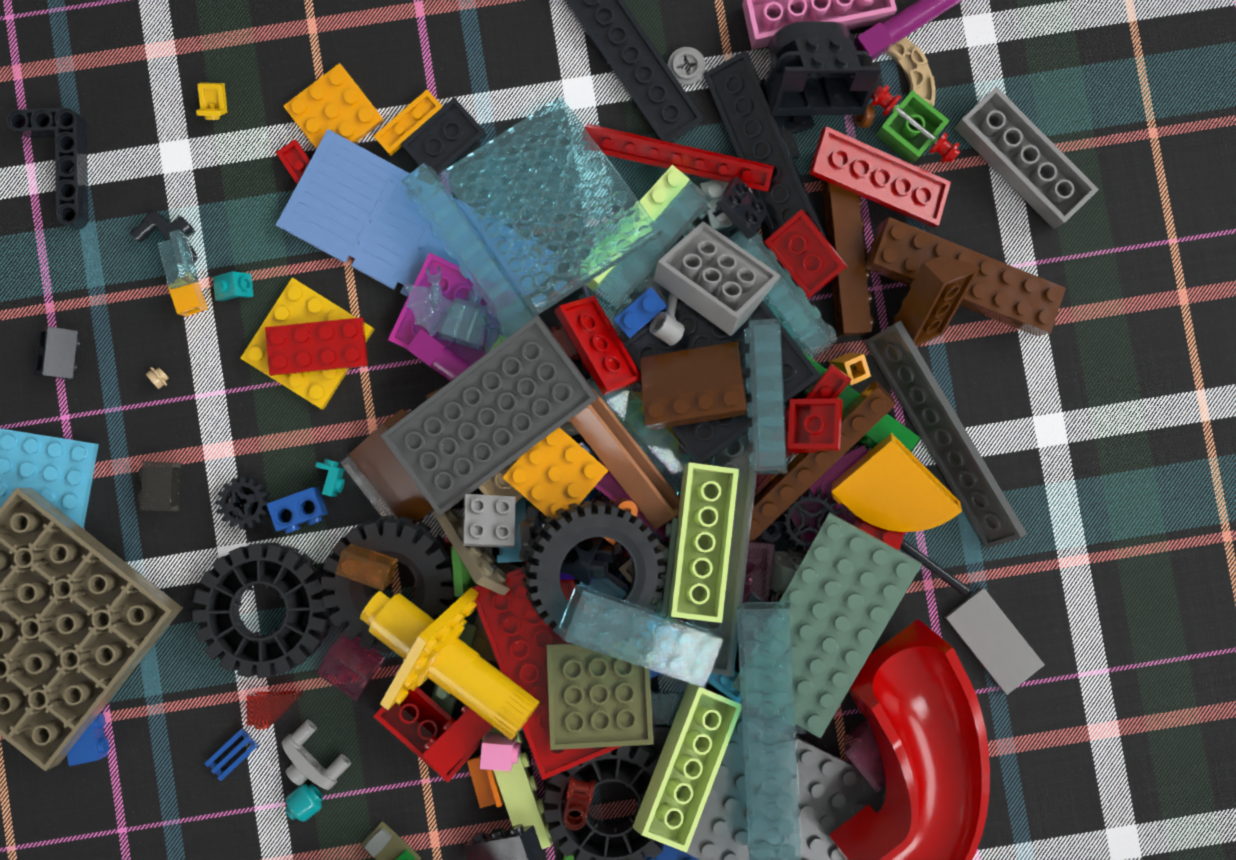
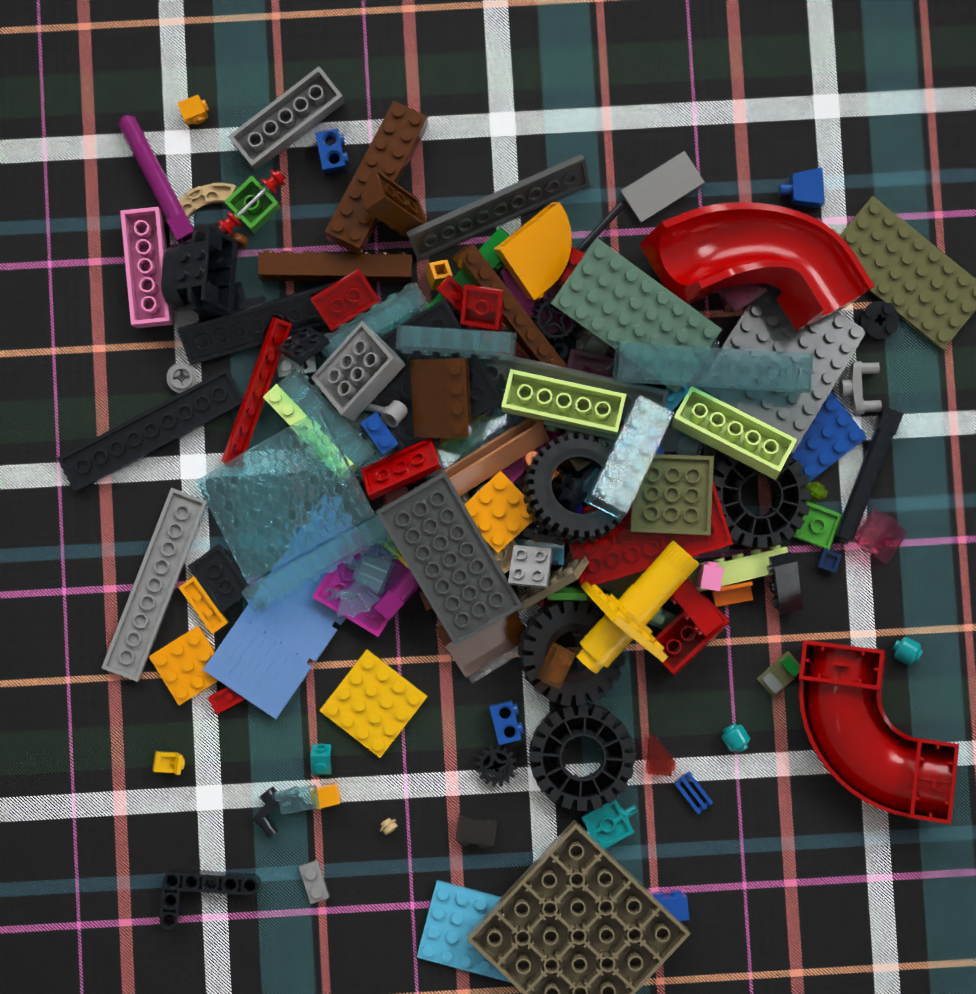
camera: 90 degrees left, 0 degrees up
(56, 352) = (360, 905): brick -> none
(83, 293) = (314, 881): none -> light grey plate
(181, 652) = (609, 823): none -> teal plate
(305, 766) = (708, 734): light grey connector -> none
(316, 346) = (377, 694): red plate -> none
(334, 482) = (486, 690): teal bracket -> none
(350, 666) = (633, 691): clear pink slope -> none
(428, 60) = (154, 584): none -> light grey plate
(578, 798) = (749, 519): clear red piece -> none
(879, 177) = (290, 234): plate -> none
(989, 215) = (328, 152): none -> blue brick
(1014, 826) = (805, 188): none -> blue torso
(1022, 43) = (193, 110): none -> light orange brick

